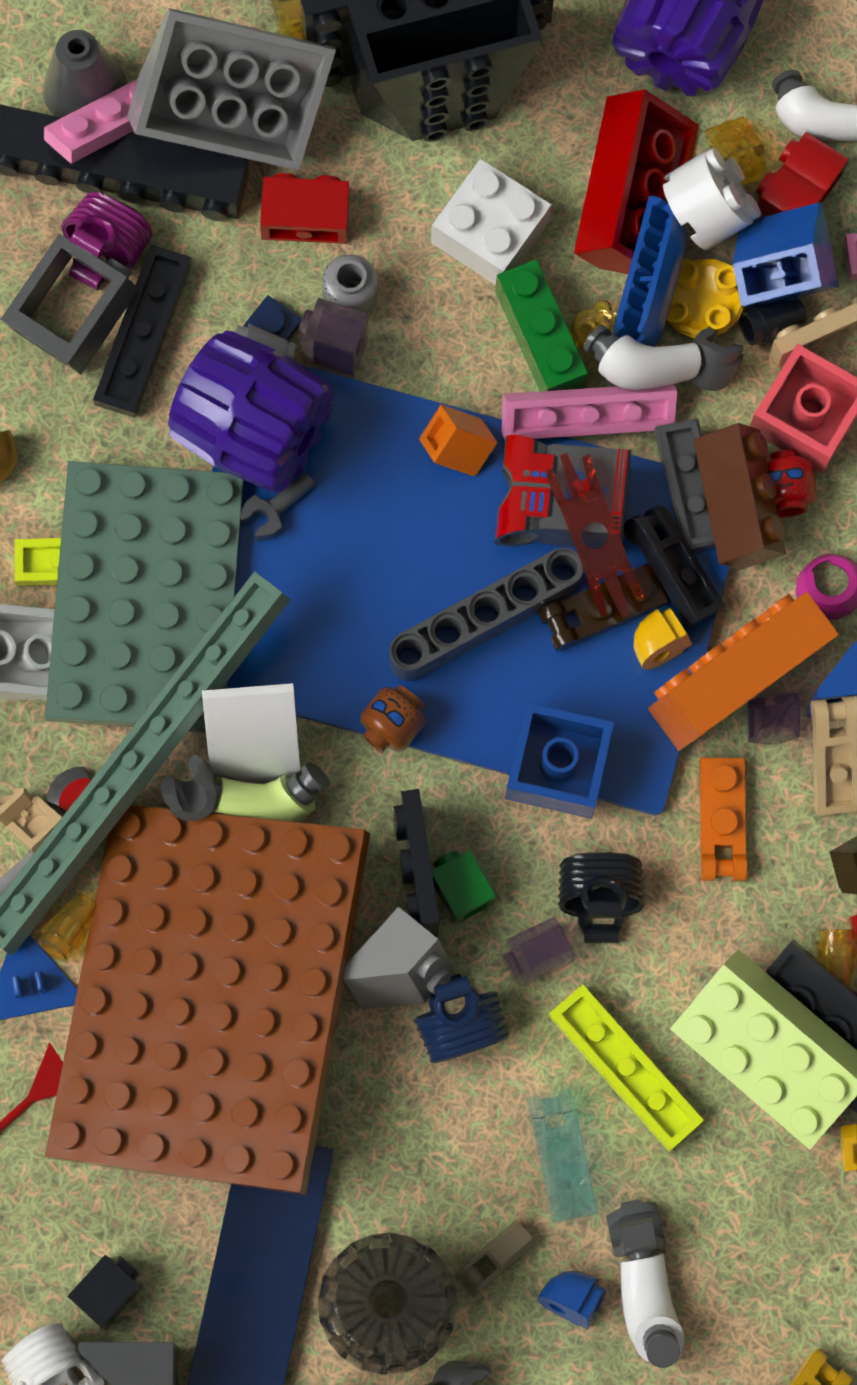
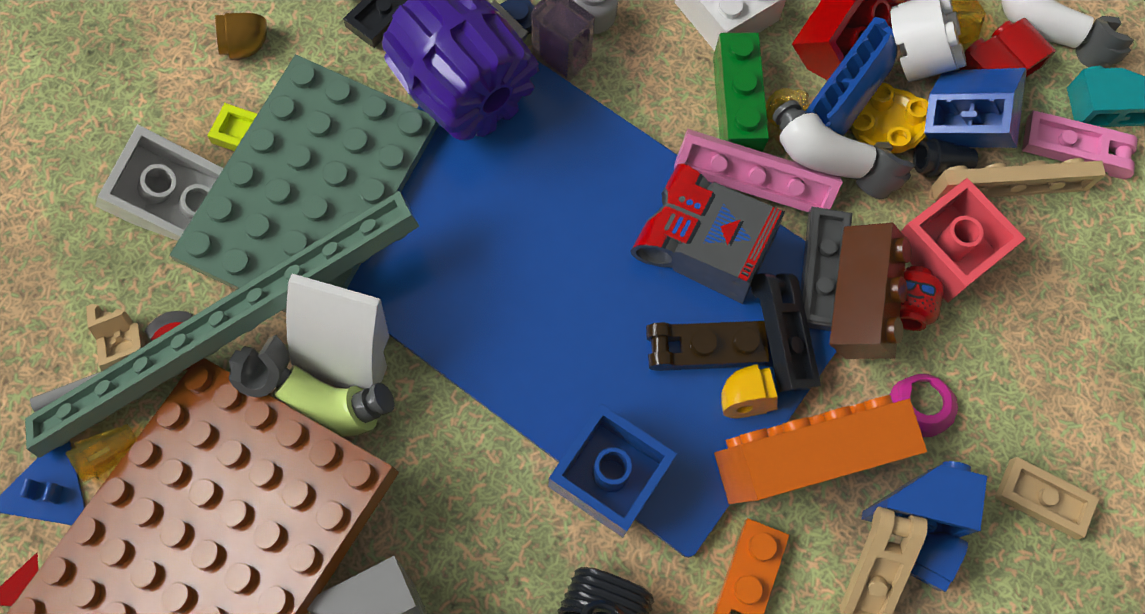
camera: 20 degrees right, 5 degrees down
(273, 508) = (451, 156): dark grey bar -> none
(393, 719) = (474, 373): dark orange head -> none
(415, 861) = (437, 518): black plate -> none
(458, 440) = (633, 156): orange panel -> none
(461, 885) = (474, 554): green brick -> none
(475, 632) = (613, 297): dark grey beam -> none
(601, 561) = (730, 299): clear red piece -> none
(774, 719) = (831, 508): clear purple slope -> none

